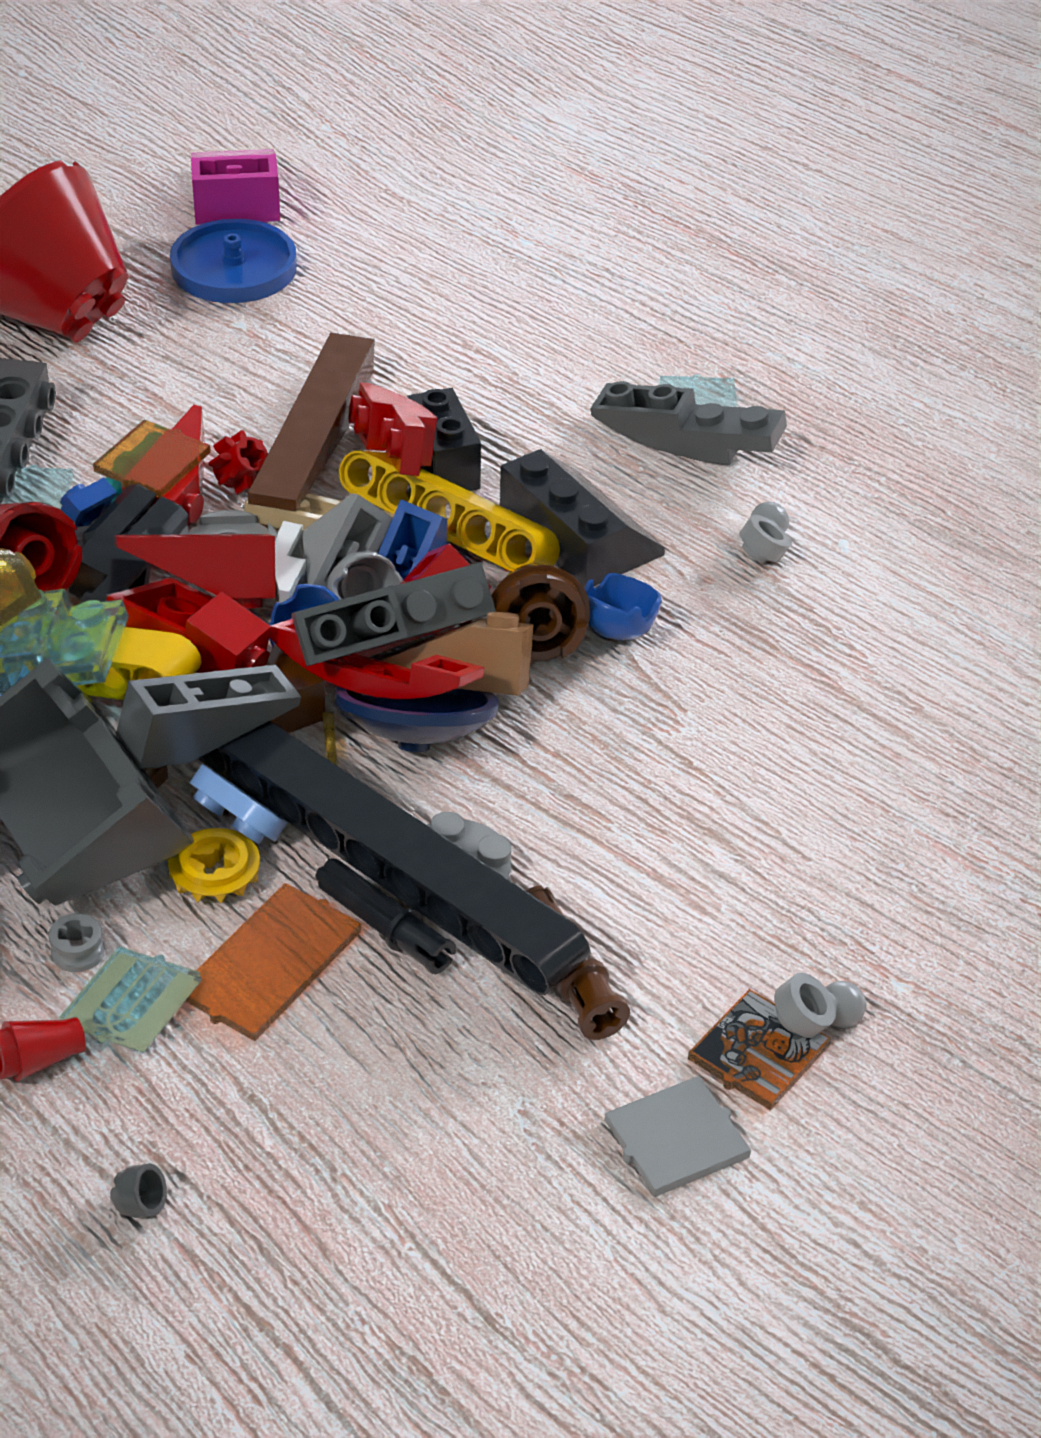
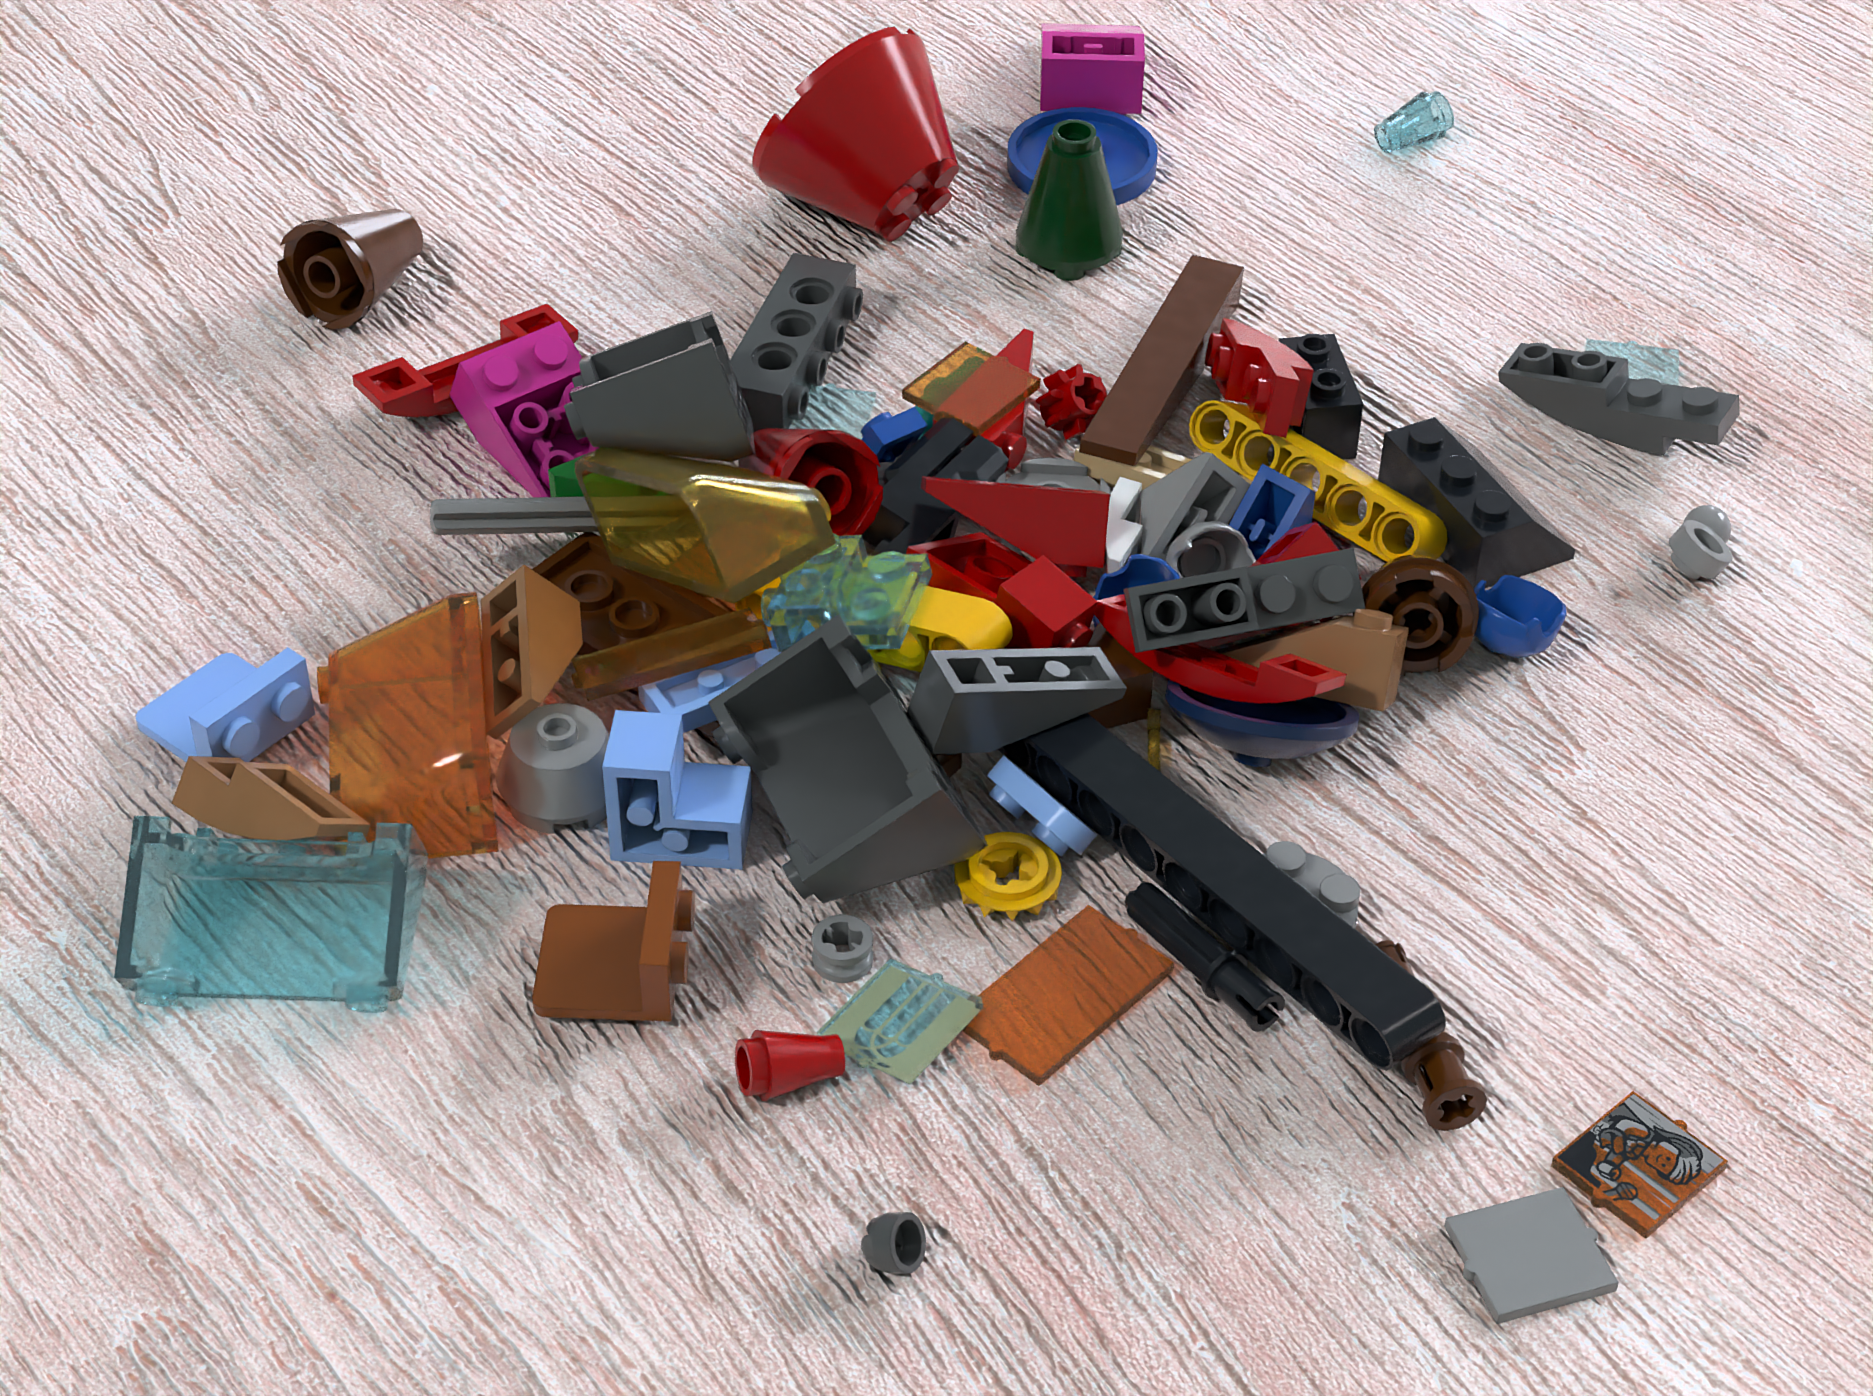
camera: 10 degrees right, 0 degrees up
(225, 300) = (1071, 206): none -> dark green cone
(506, 211) = (1416, 122): none -> clear light blue cone
(810, 1007) = (1705, 1121): light grey plate -> none

